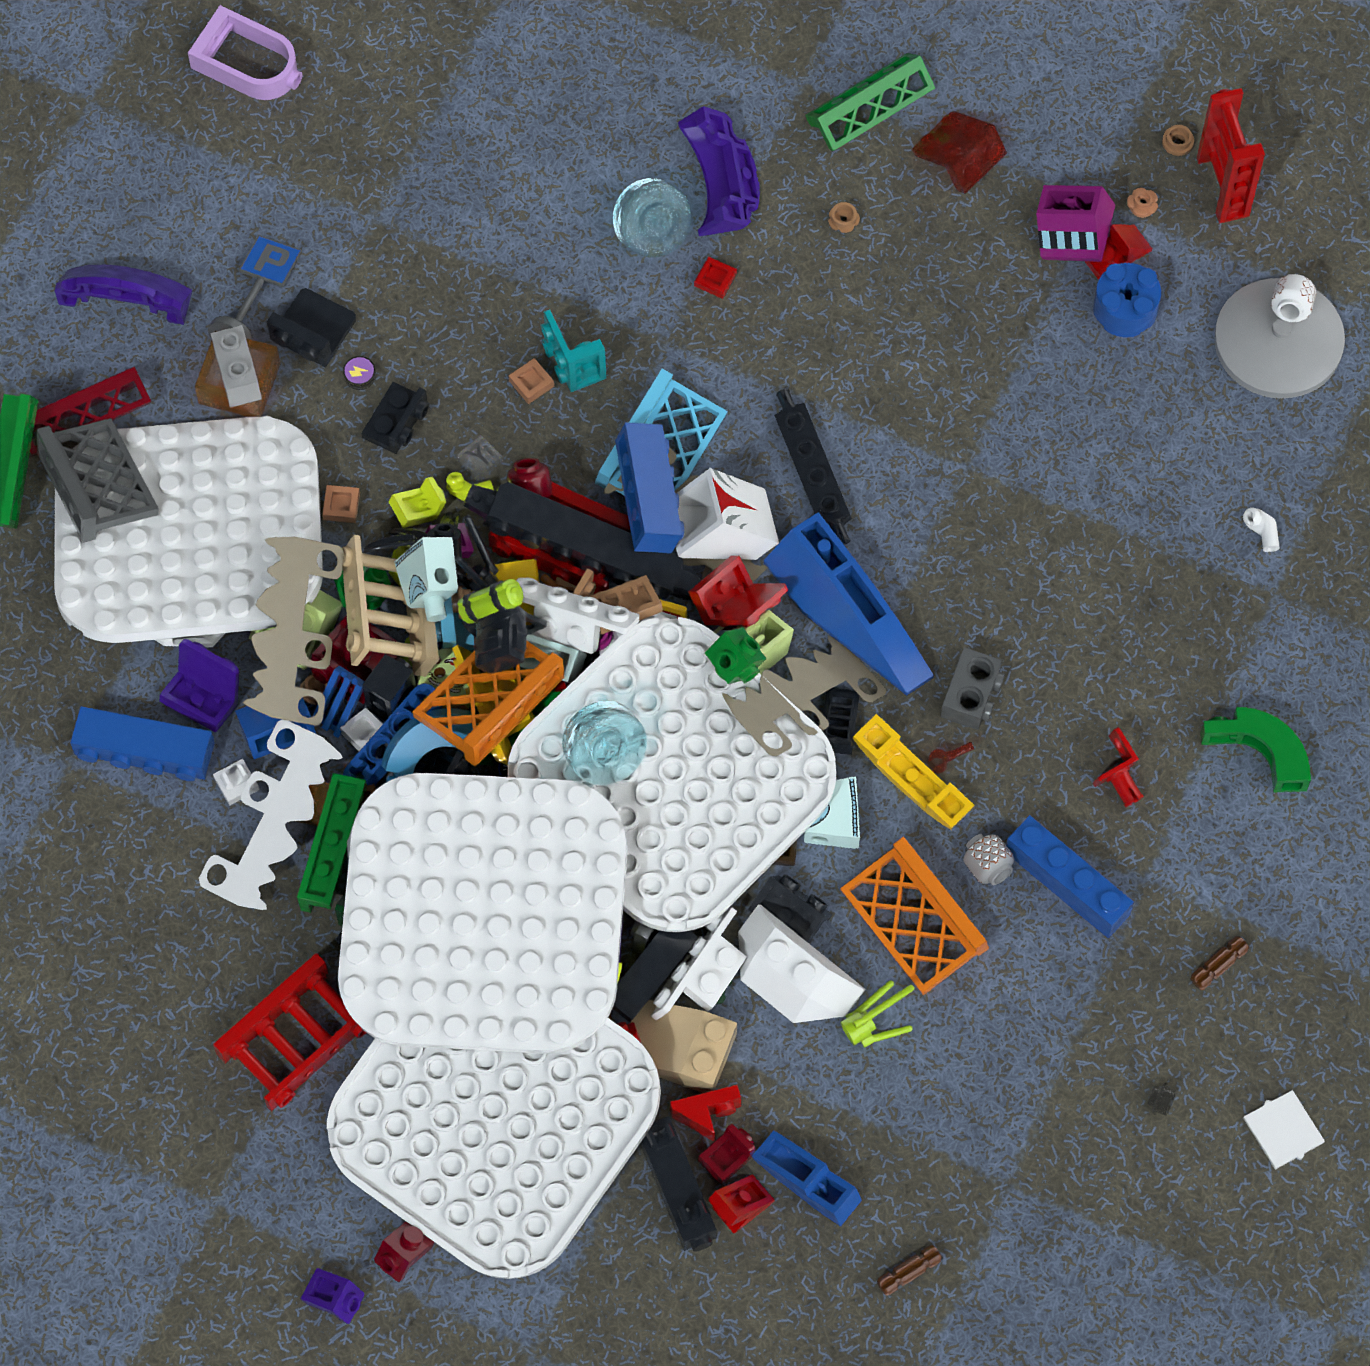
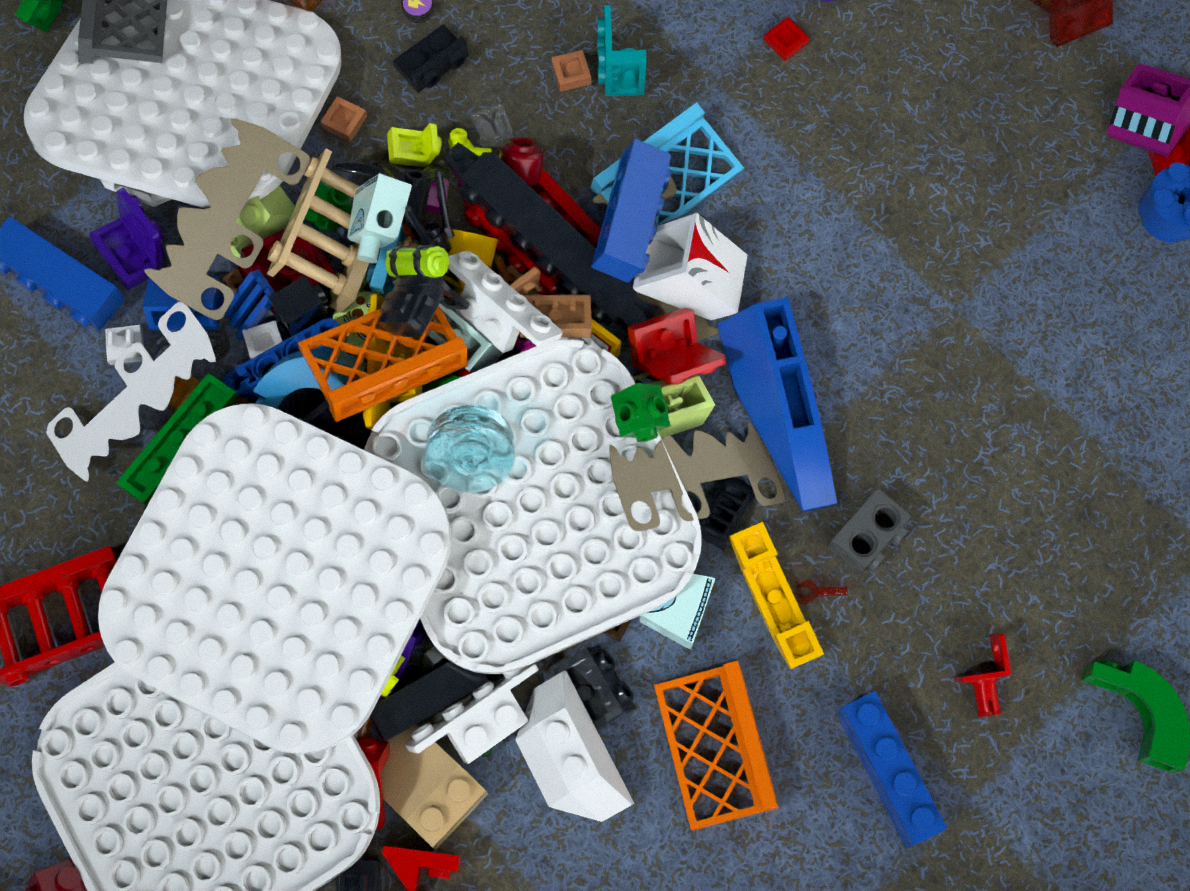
camera: 20 degrees right, 5 degrees up
(812, 464) = (804, 251): black plate -> none
(843, 210) = (934, 20): medium nougat plate -> none
(859, 1023) = (613, 840): lime plant -> none
(988, 859) = (815, 717): light grey head -> none

